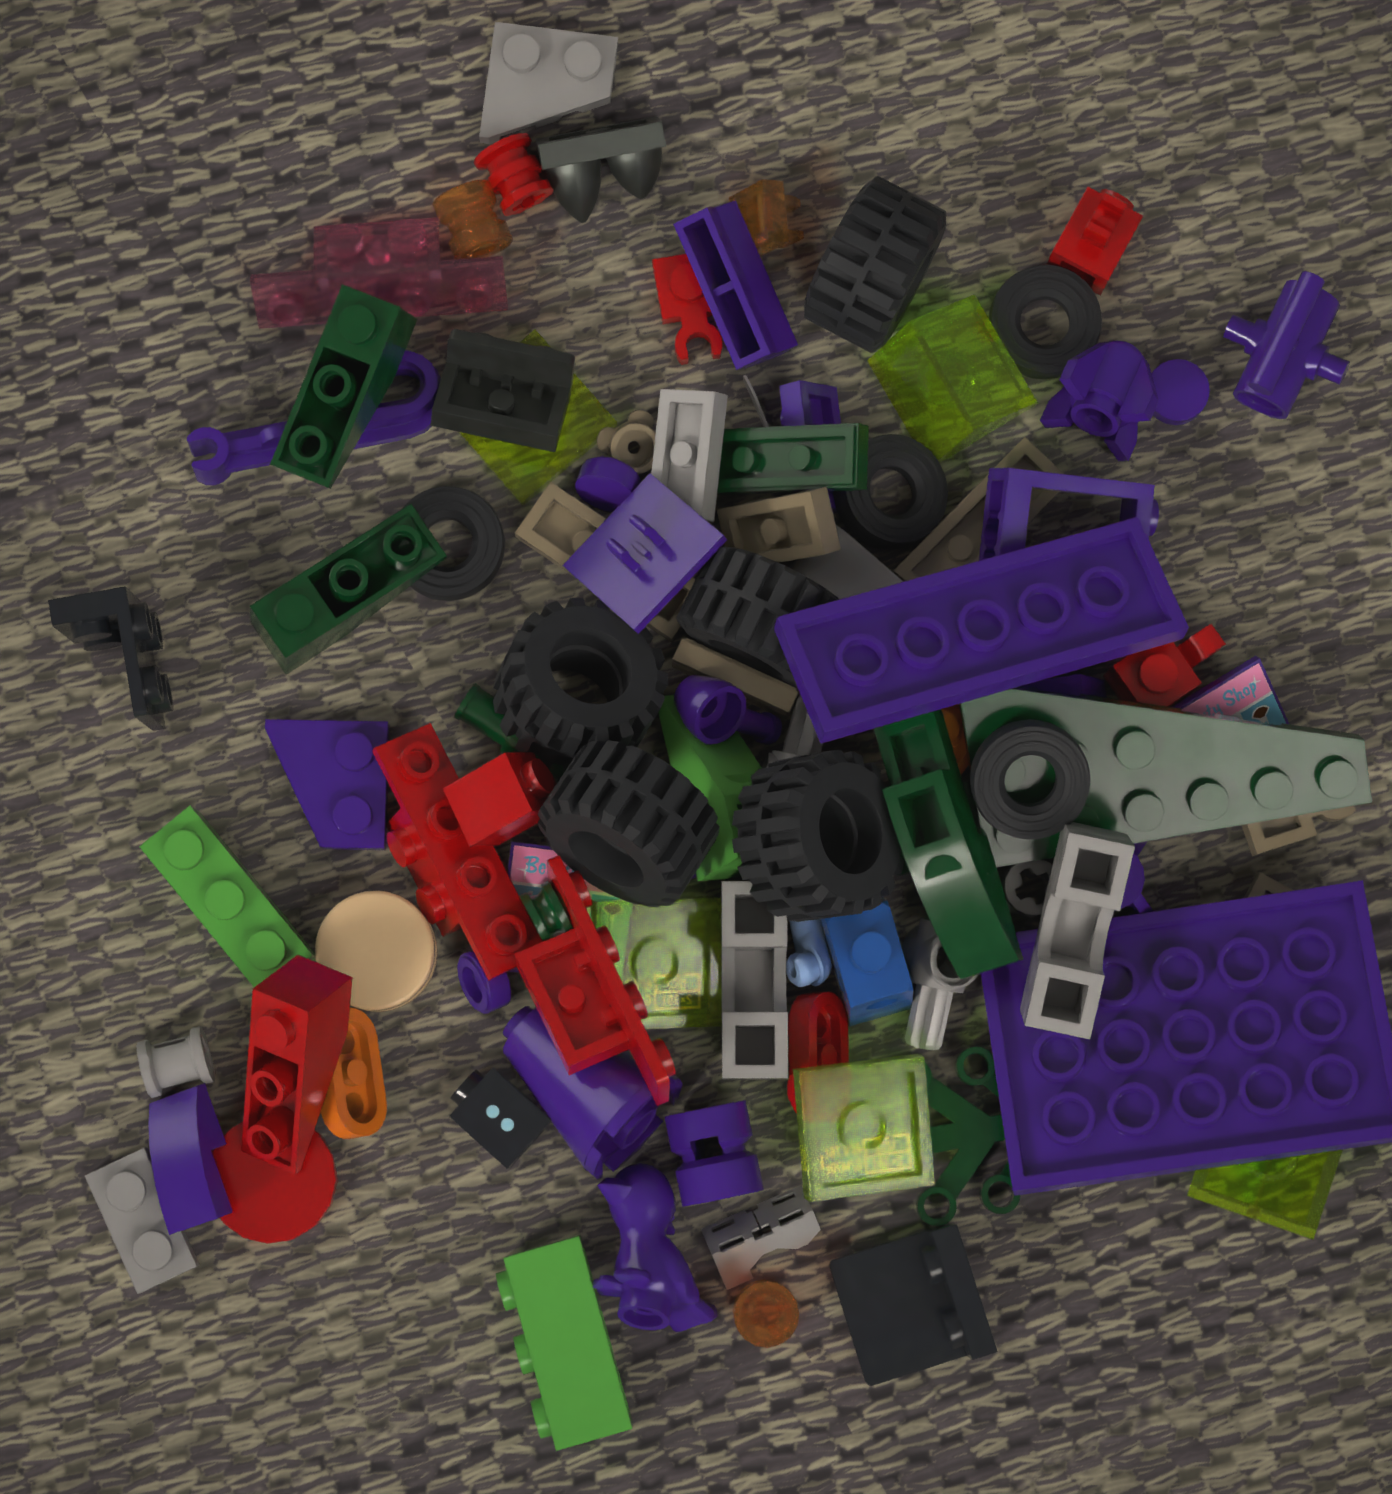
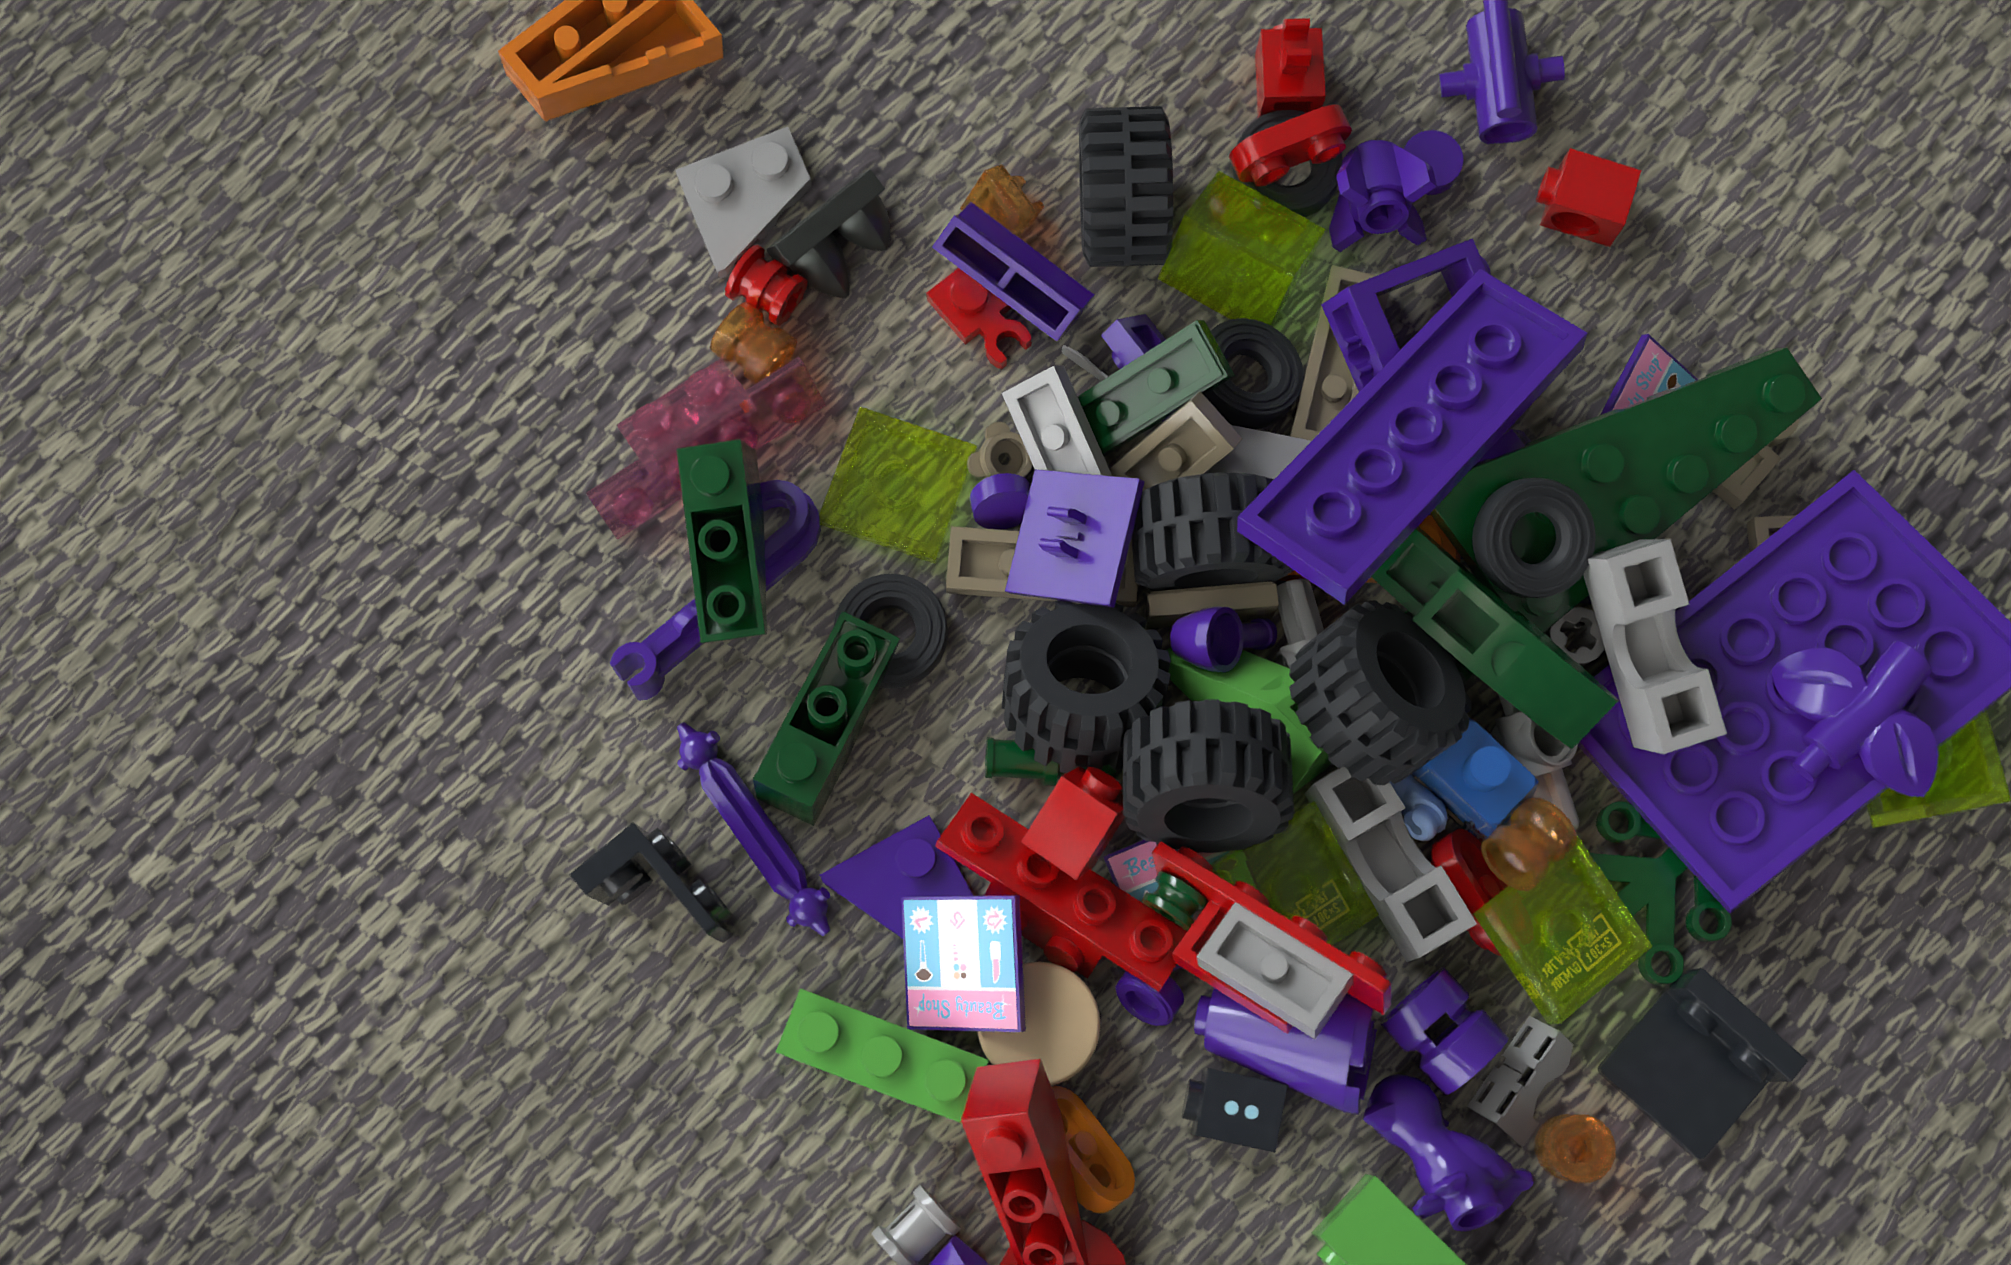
camera: 25 degrees left, 5 degrees down
(232, 647) = (753, 829): none -> dark purple wheel
(339, 862) = (963, 963): none -> piece
(504, 390) = (867, 468): pearl dark grey bracket -> none
(584, 1015) = (1275, 970): none -> light grey plate
(872, 1036) = (1533, 839): none -> clear orange wheel
(1024, 305) = (1275, 150): none -> red plate
(1163, 672) = (1573, 395): red brick -> none
(1220, 1092) = (1861, 715): none -> dark purple plant
(1293, 503) = (1587, 197): none -> red brick

